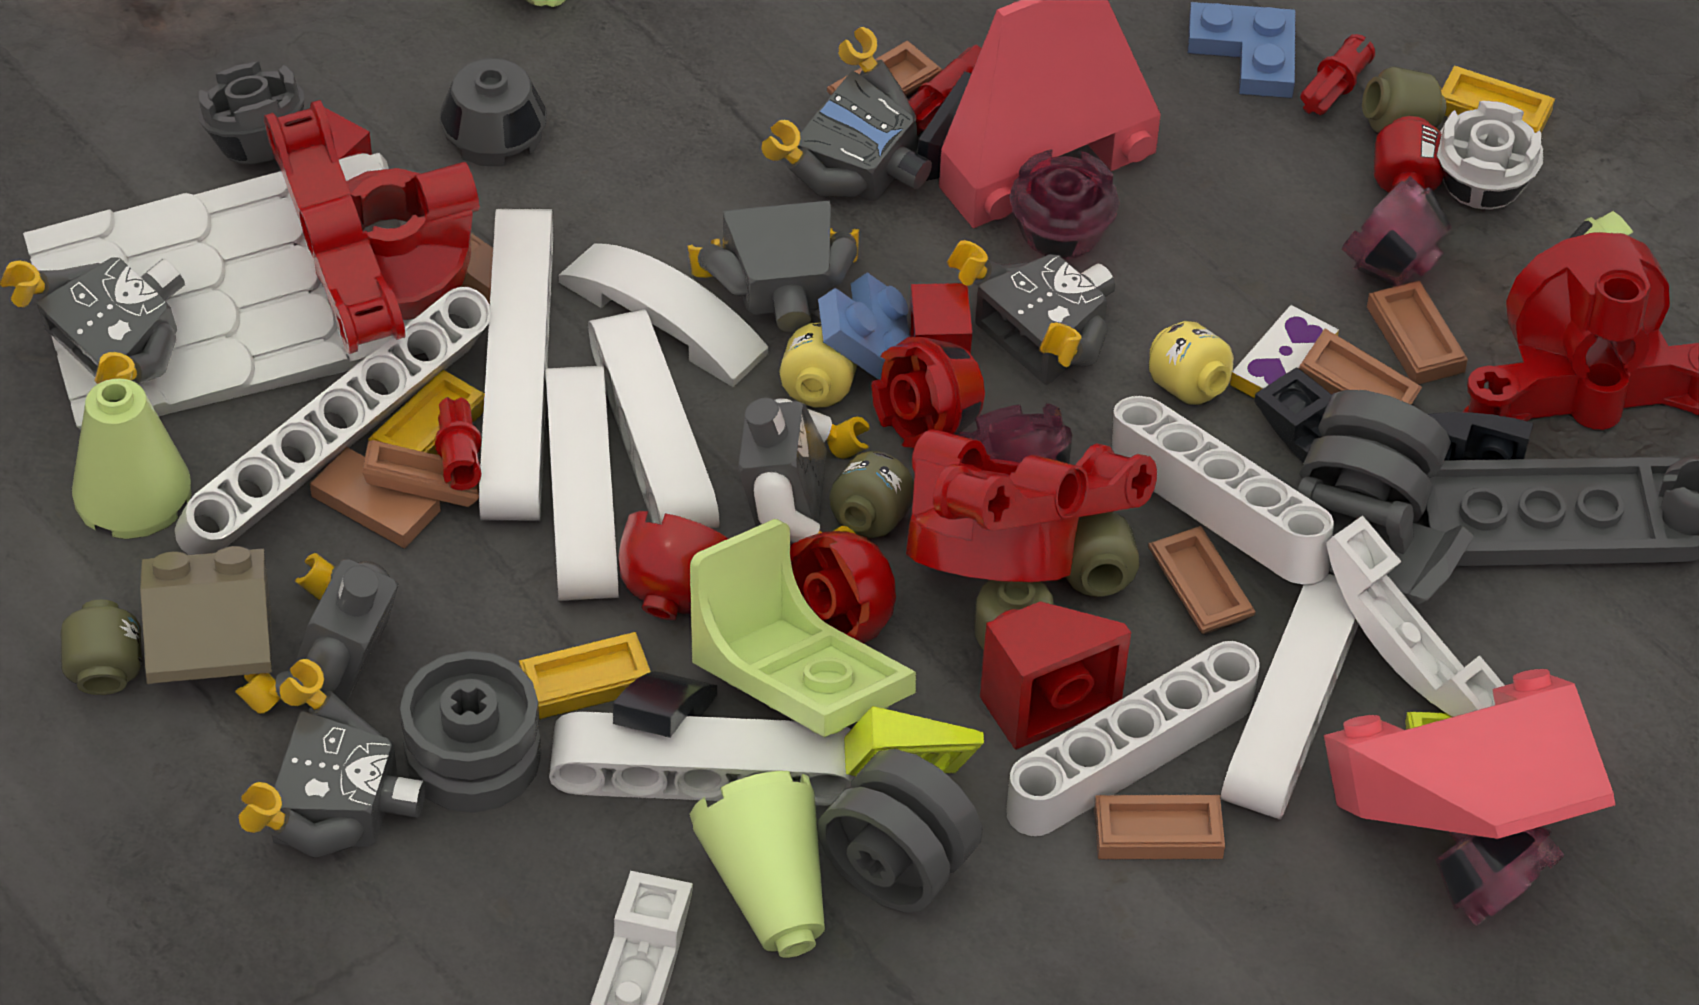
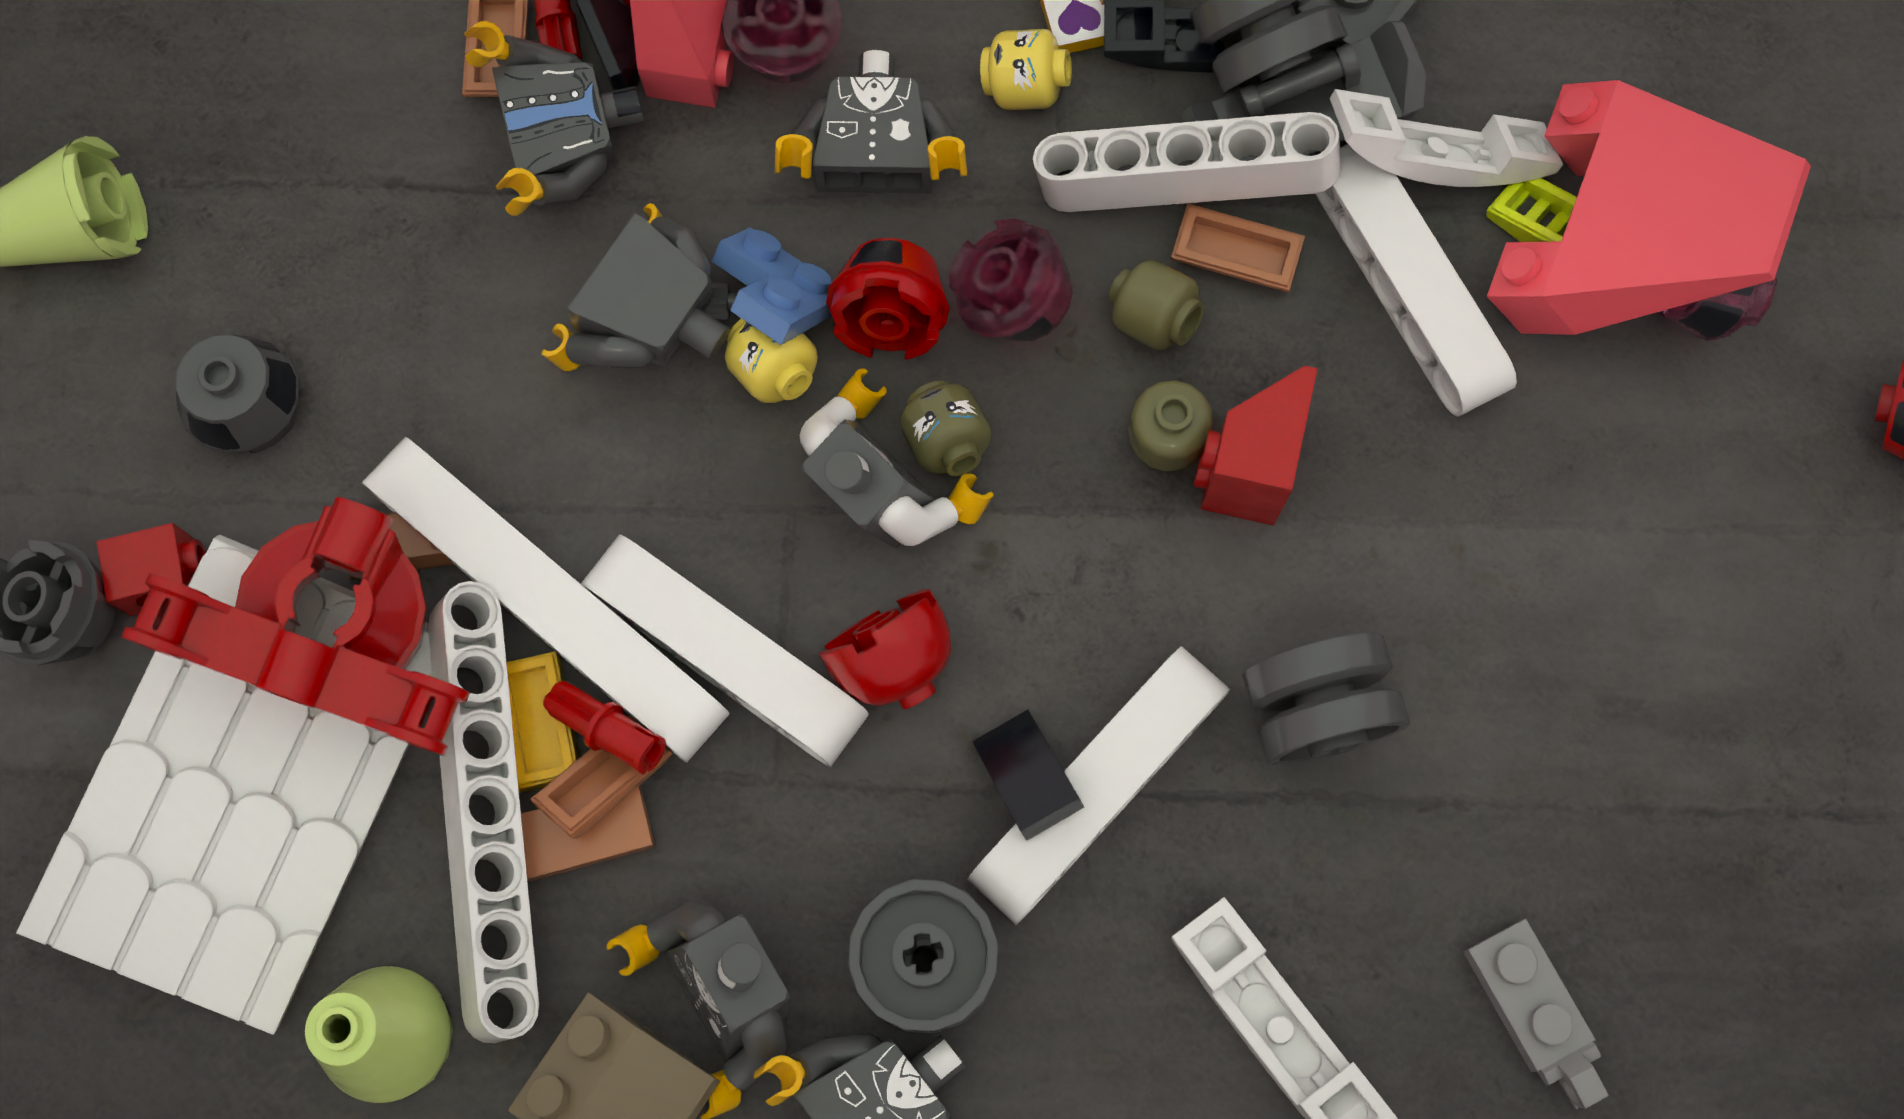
camera: 45 degrees left, 25 degrees up
(105, 314) = (198, 936): dark grey torso -> none
(585, 674) = (924, 805): yellow tile -> none
(652, 419) = (713, 540): white beam -> none
(675, 303) = (584, 423): white slope -> none
(768, 856) = (1256, 819): yellowish green cone -> none
(770, 643) = (1072, 635): yellowish green bracket -> none
(845, 582) = (1031, 540): red cylinder -> none
(935, 741) = (1234, 635): neon yellow slope -> none
(941, 313) = (816, 225): red brick -> none
(1012, 516) = (1096, 367): red piece -> none
(1159, 827) = (1442, 483): nougat tile -> none
(1161, 716) = (1363, 405): white beam -> none

